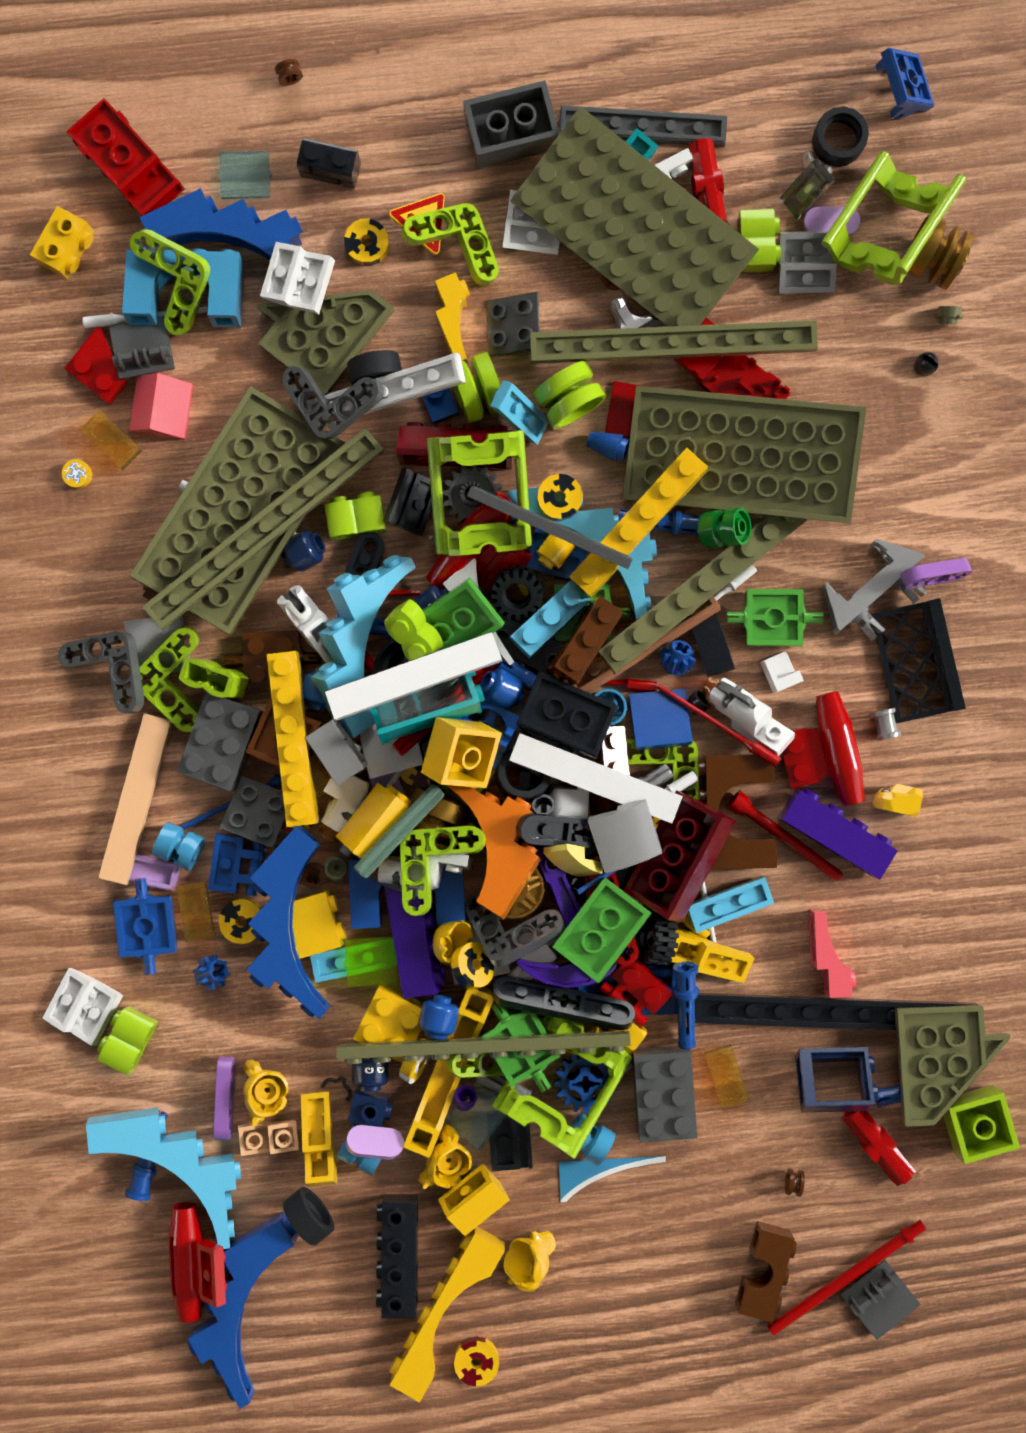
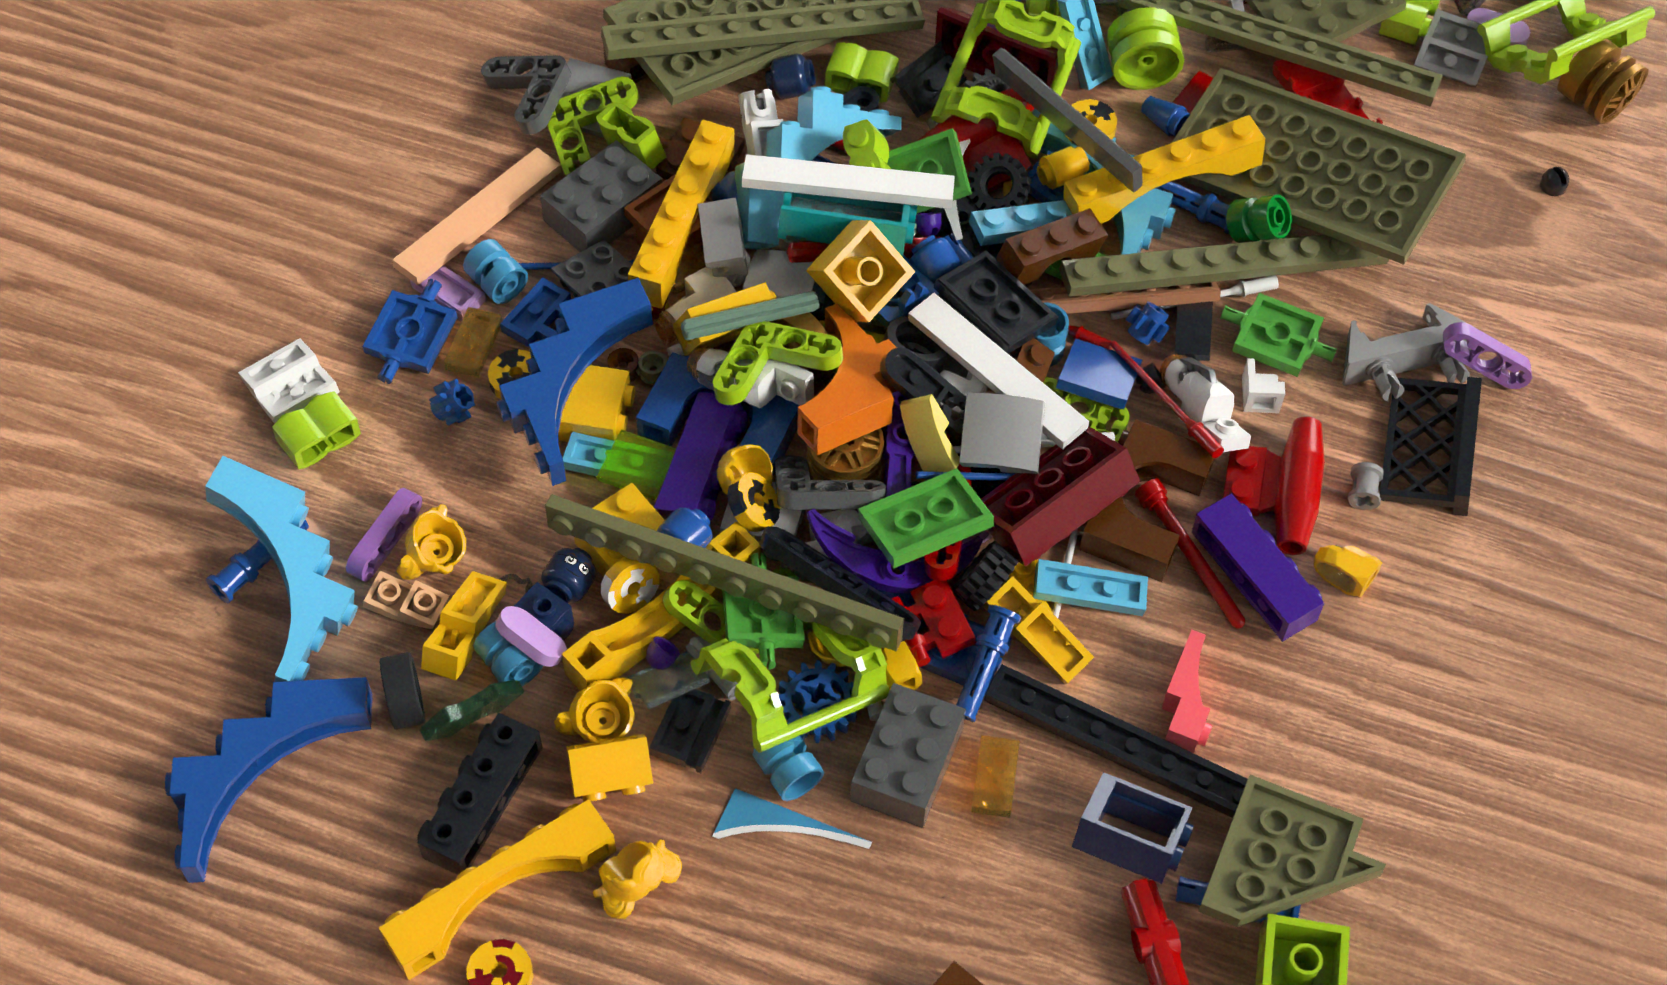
camera: 25 degrees right, 30 degrees down
(194, 1265) = (232, 684): red plate -> none
(363, 1201) = (457, 716): none -> clear green tile
(794, 1182) = (1024, 938): reddish brown bush -> none
(949, 314) = (1597, 146): olive plate -> none

